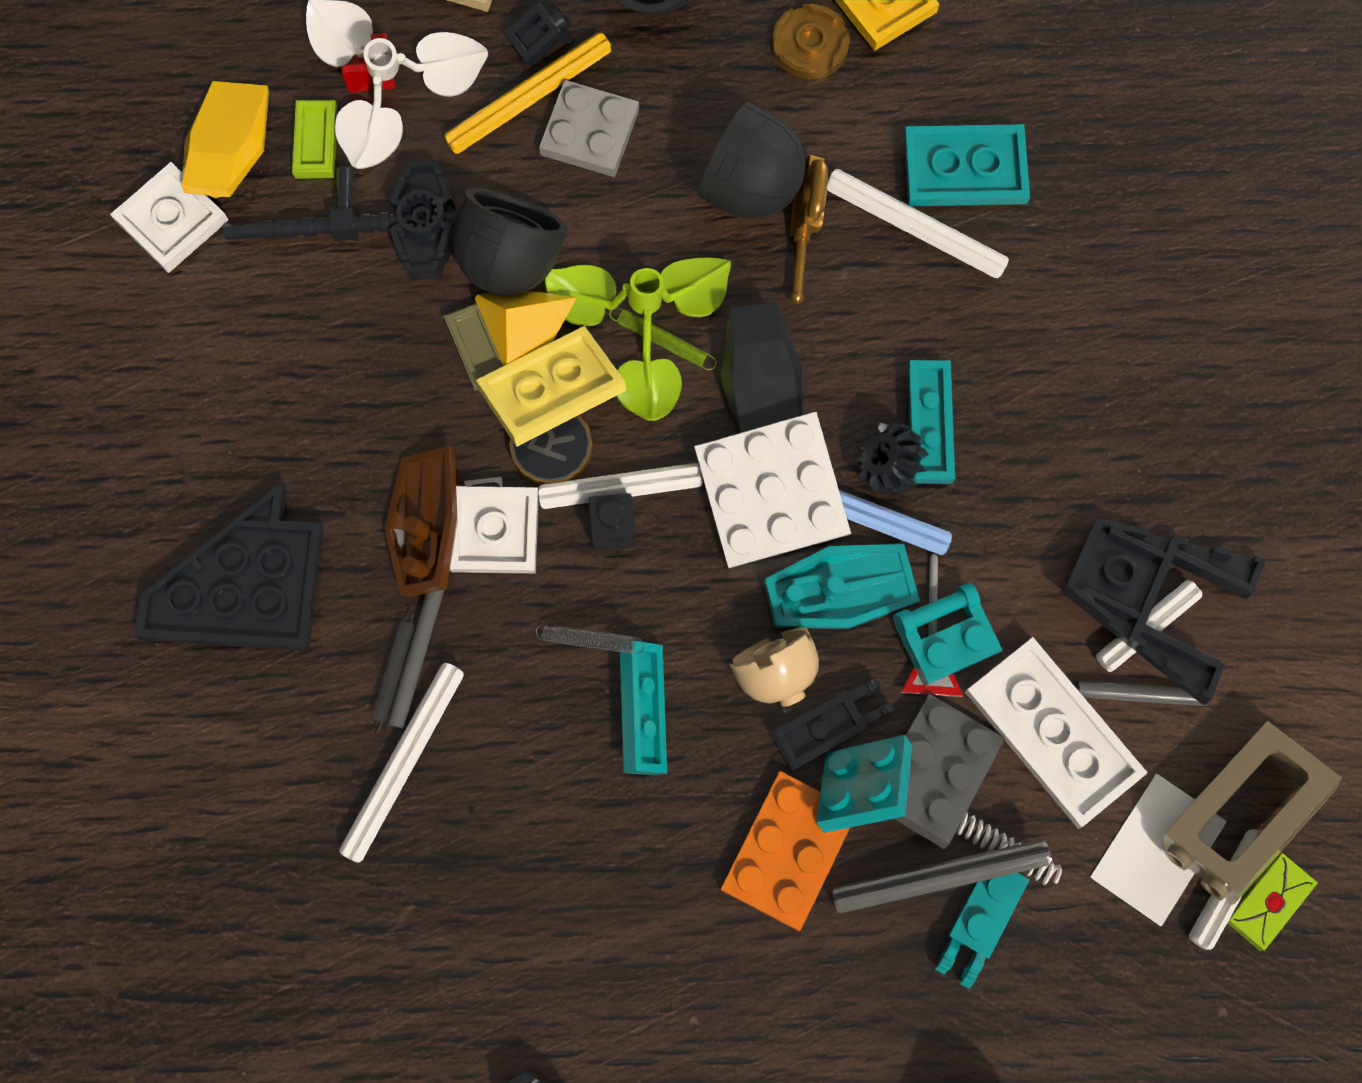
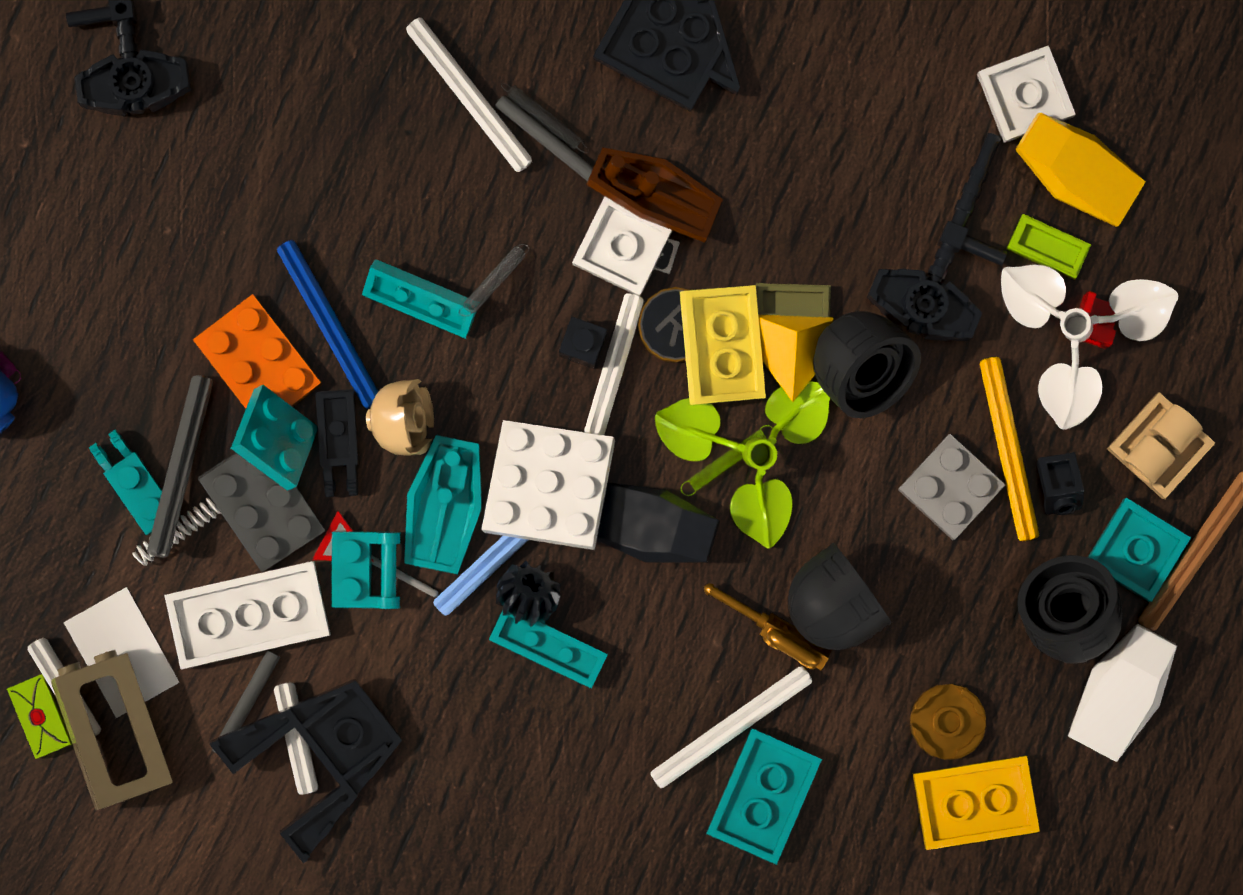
camera: 110 degrees right, 10 degrees up
(712, 794) = (328, 322): none -> blue axle

